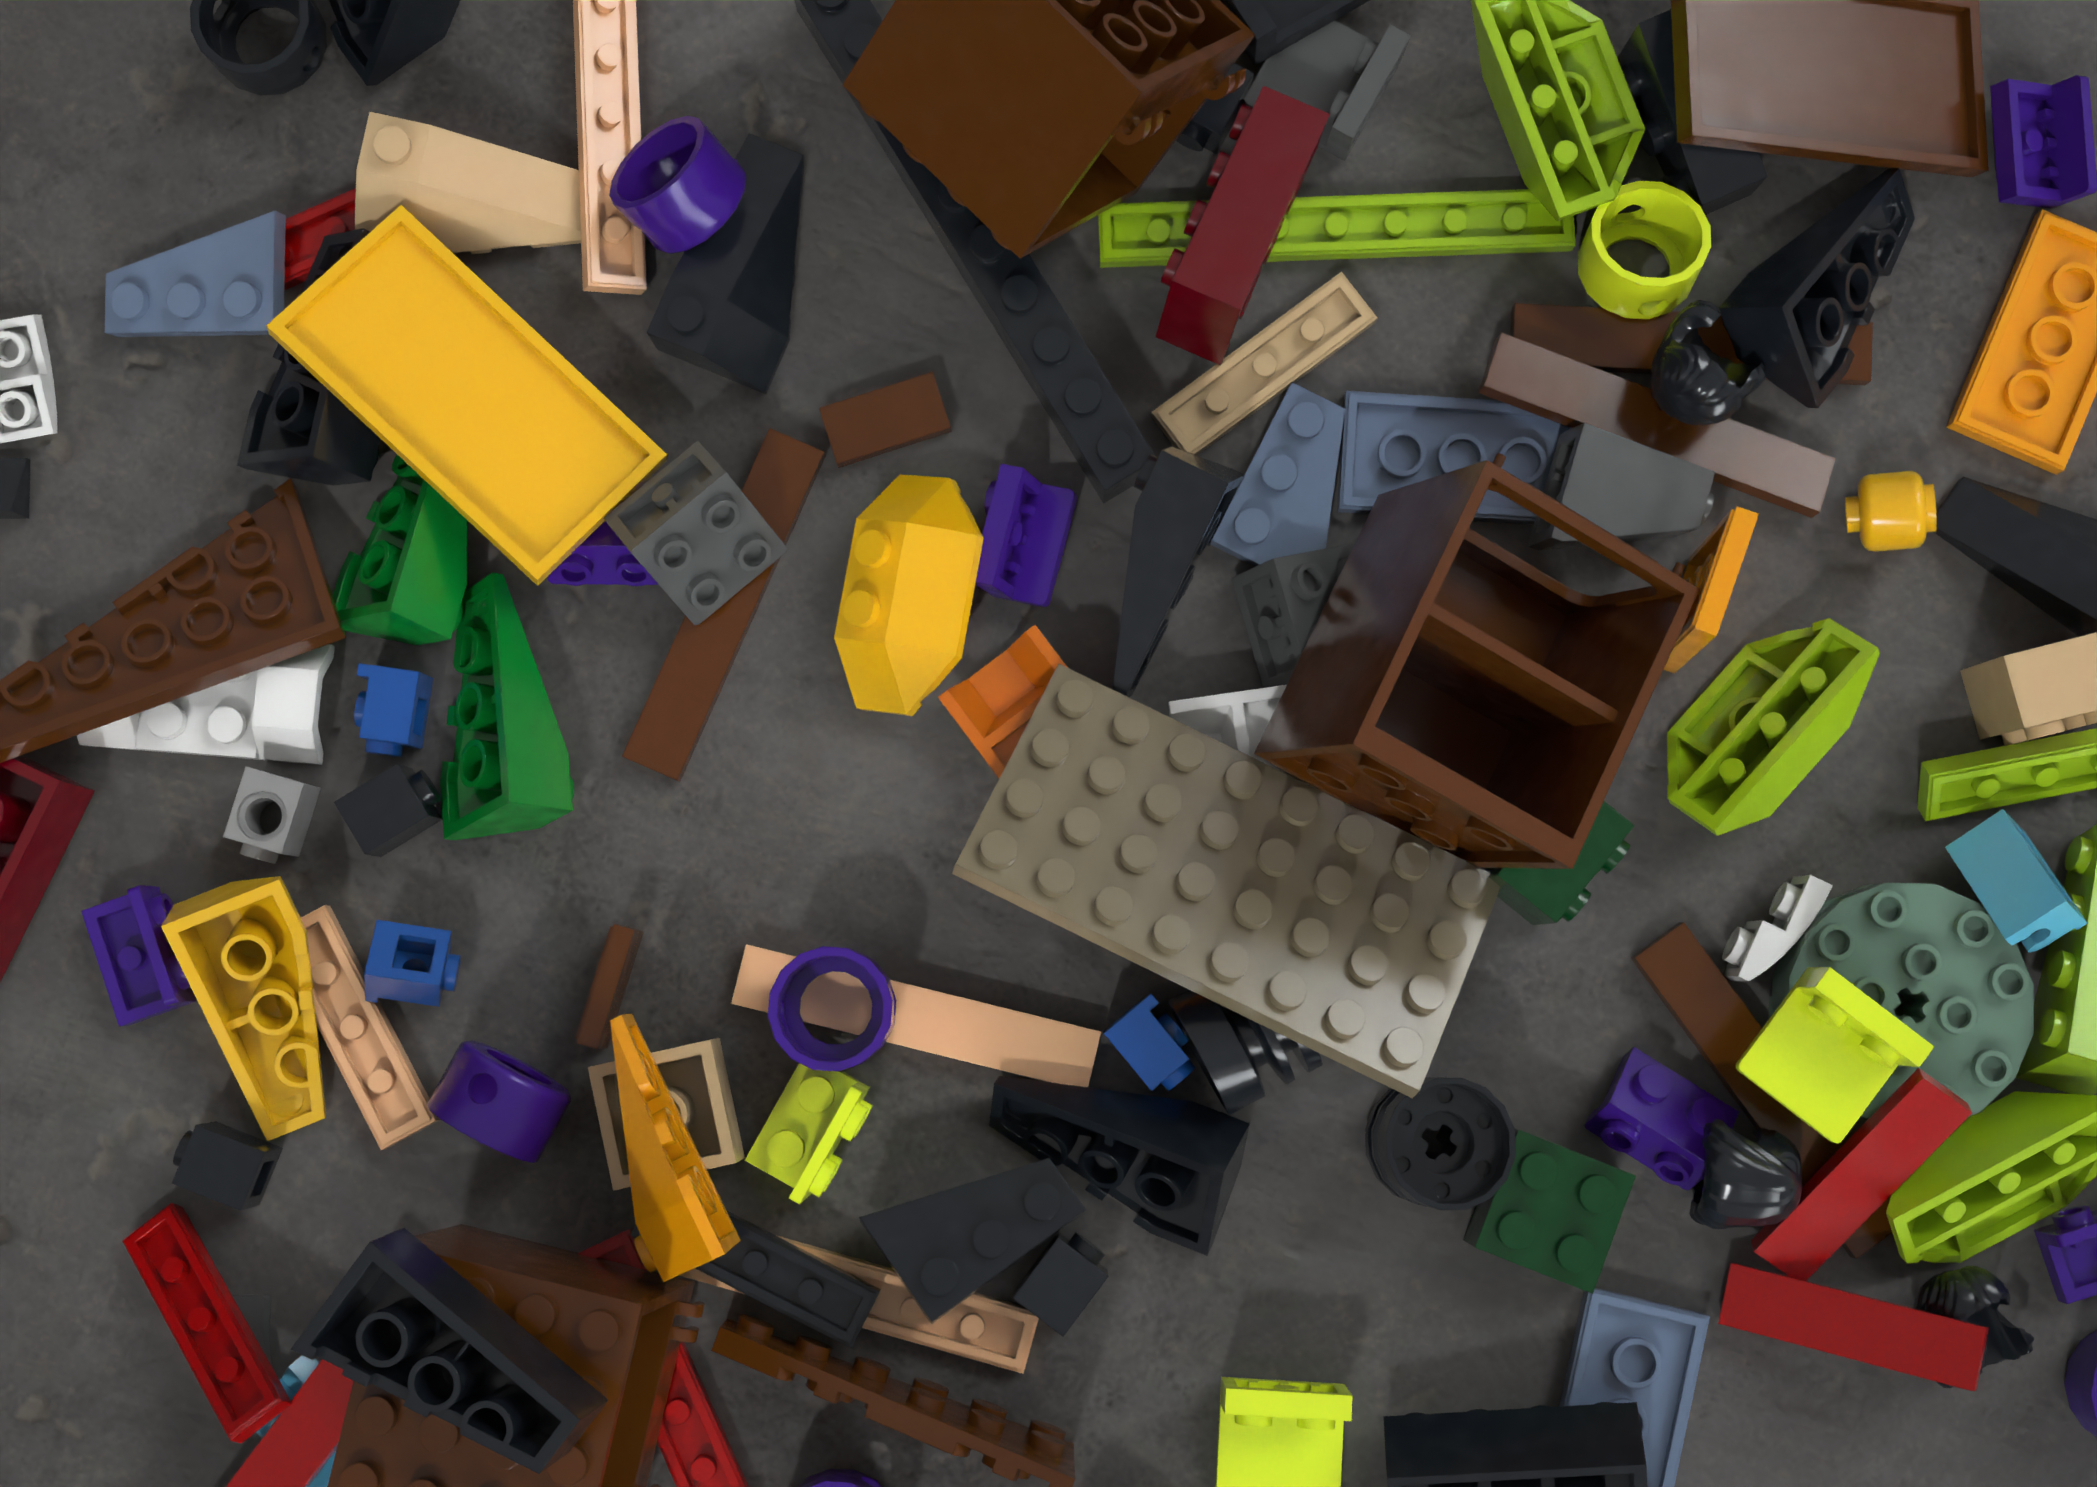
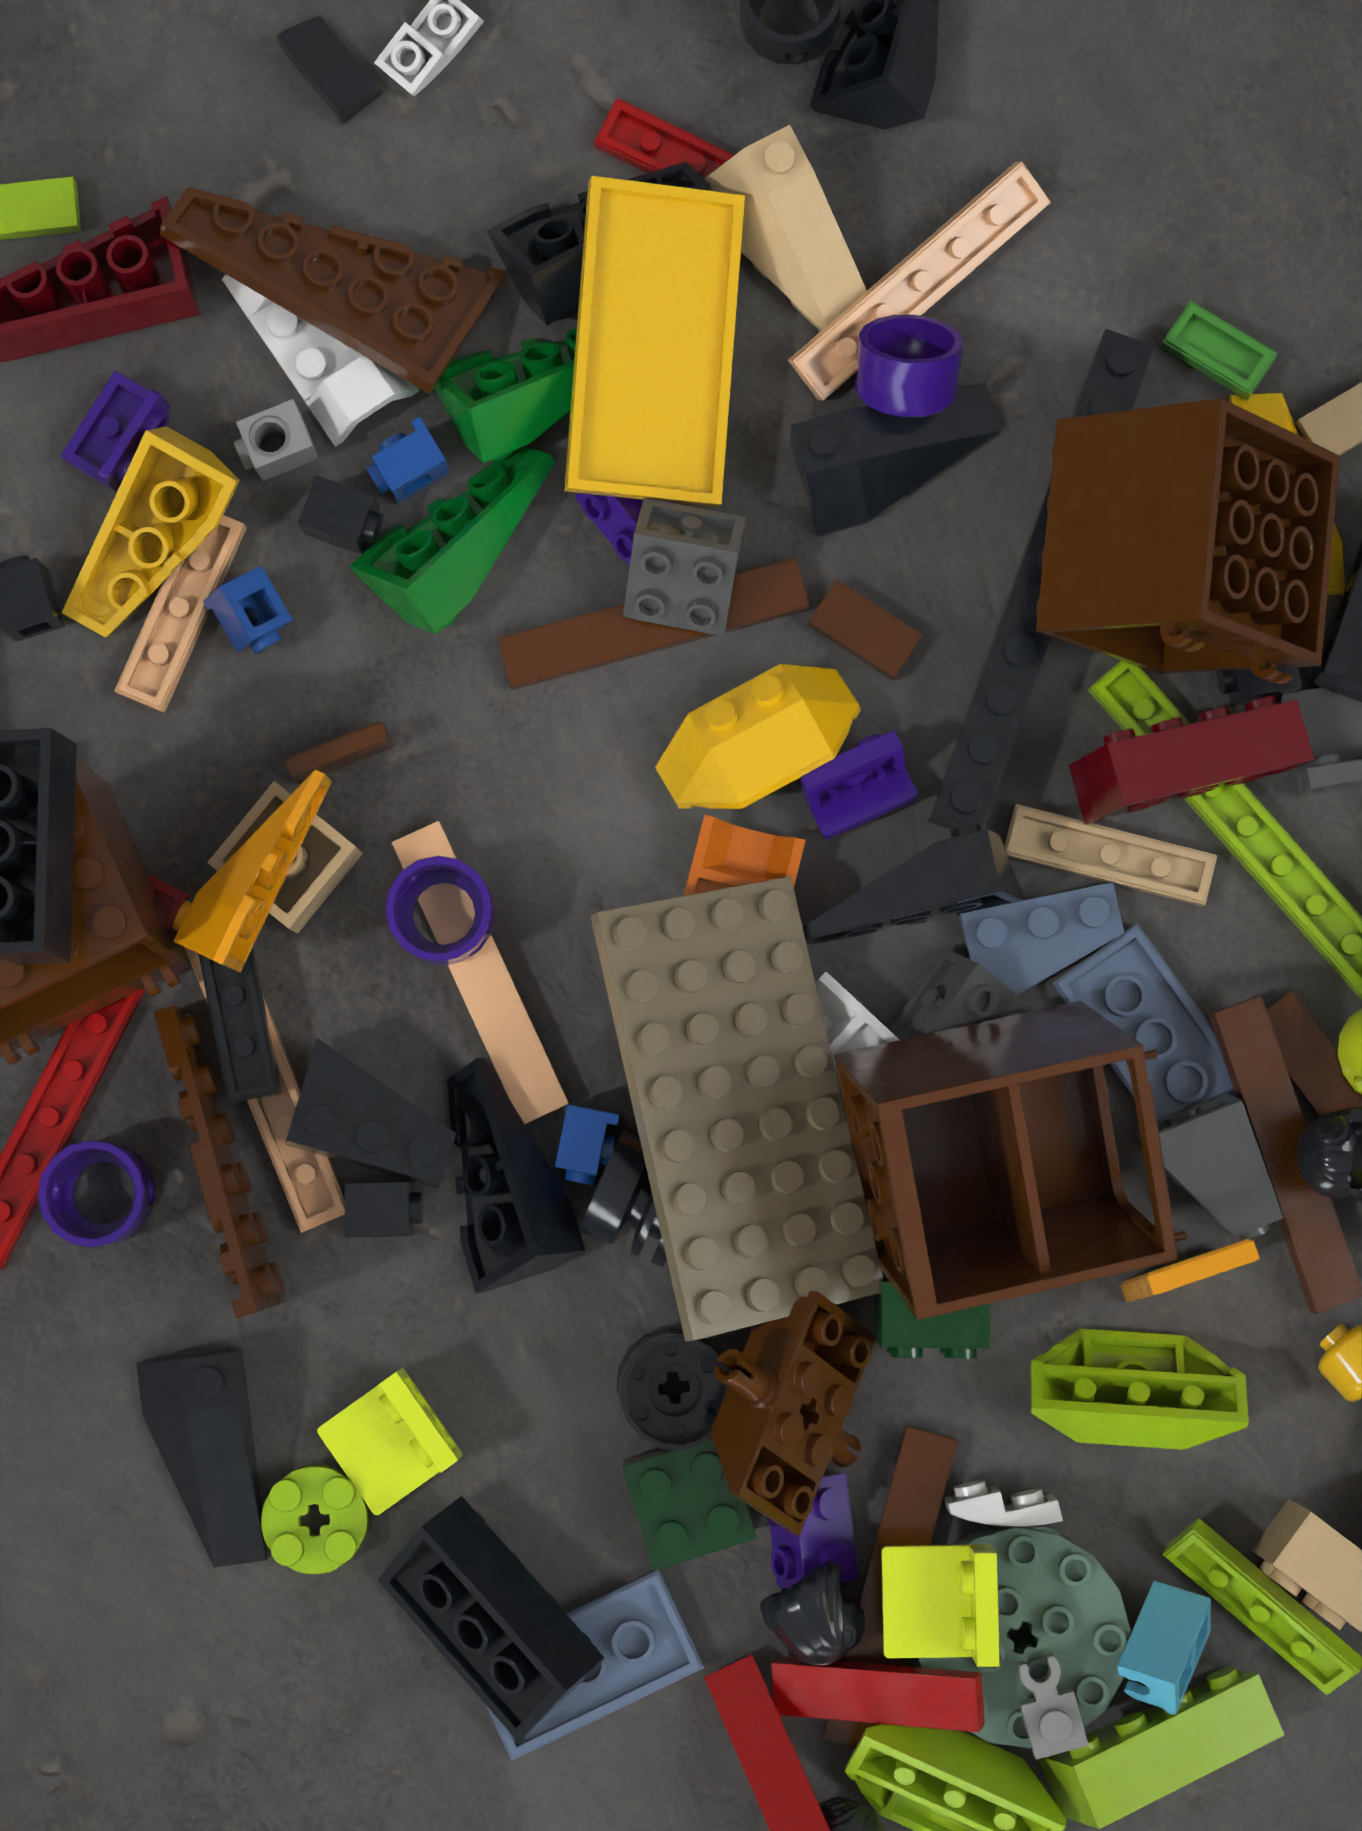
camera: 55 degrees right, 0 degrees up
(204, 287) = (587, 112): sand blue wing -> none
(499, 1101) = (207, 742): dark purple piece -> none
(807, 1128) = (349, 960): neon yellow bracket -> none
(1543, 1053) = (790, 1407): none -> reddish brown slope
(2002, 1034) = (1052, 1715): none -> light grey plate

